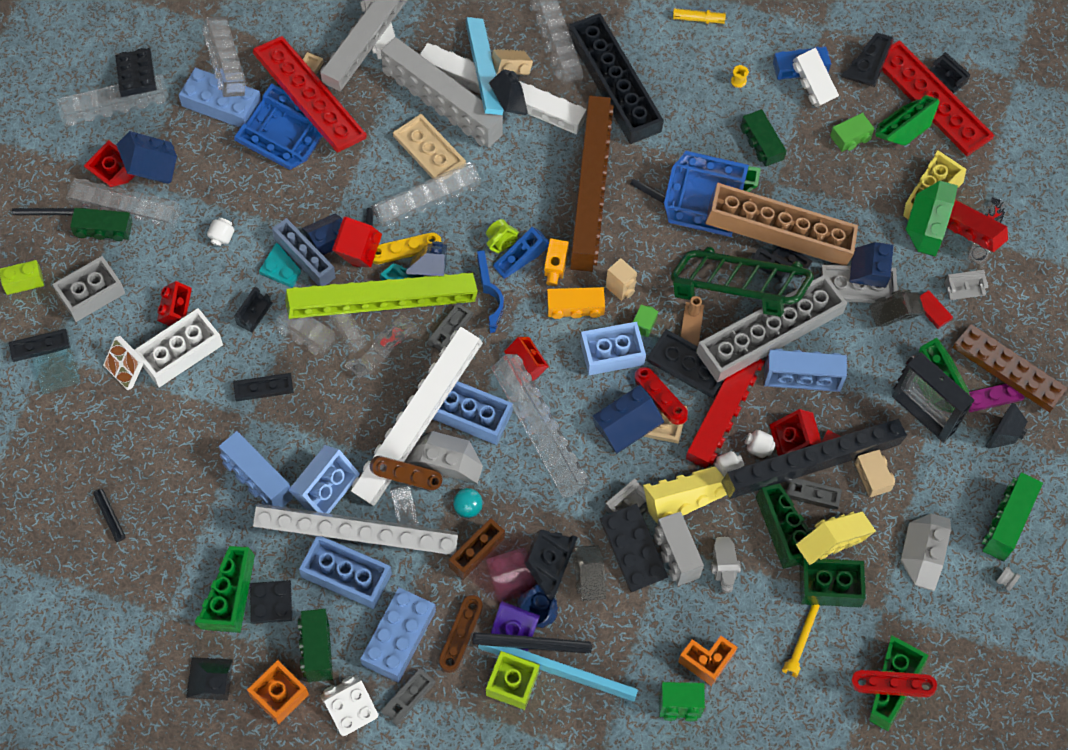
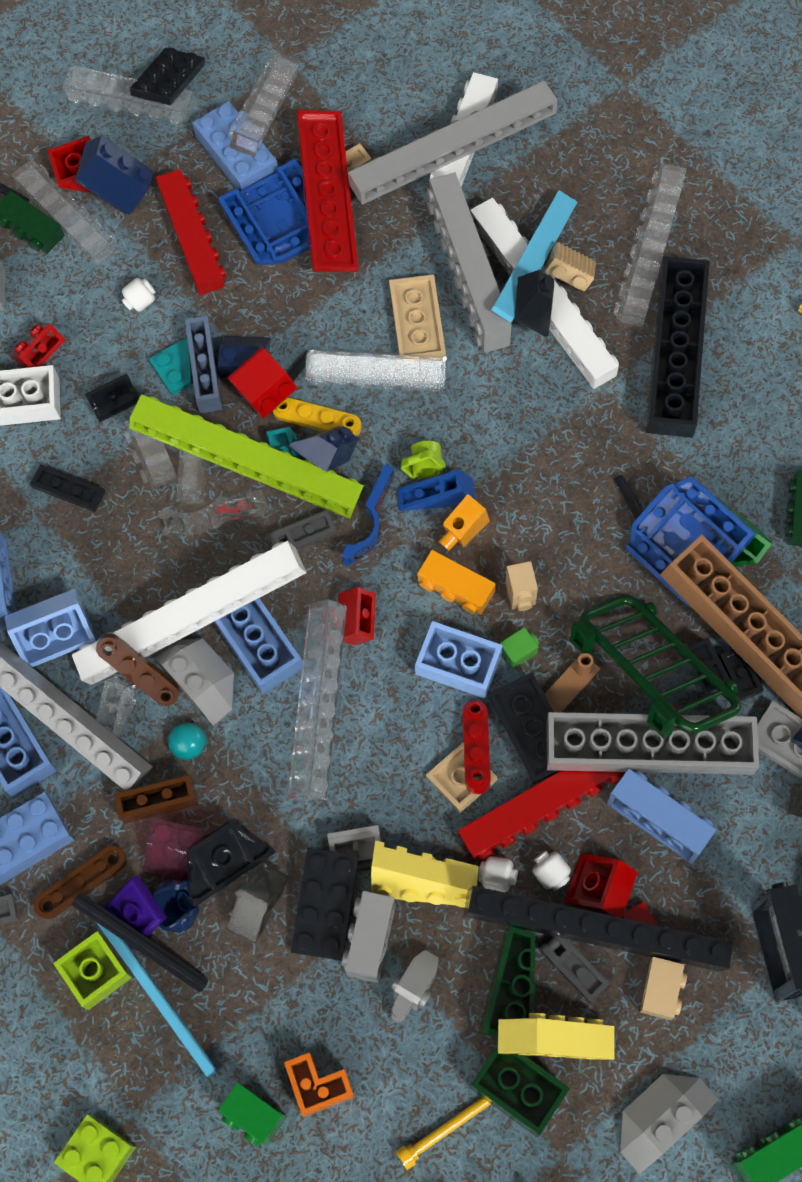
camera: 40 degrees right, 5 degrees up
(227, 170) = (190, 232): none -> red brick
(592, 184) = (563, 455): reddish brown brick -> none
(628, 419) = (419, 751): dark blue slope -> none

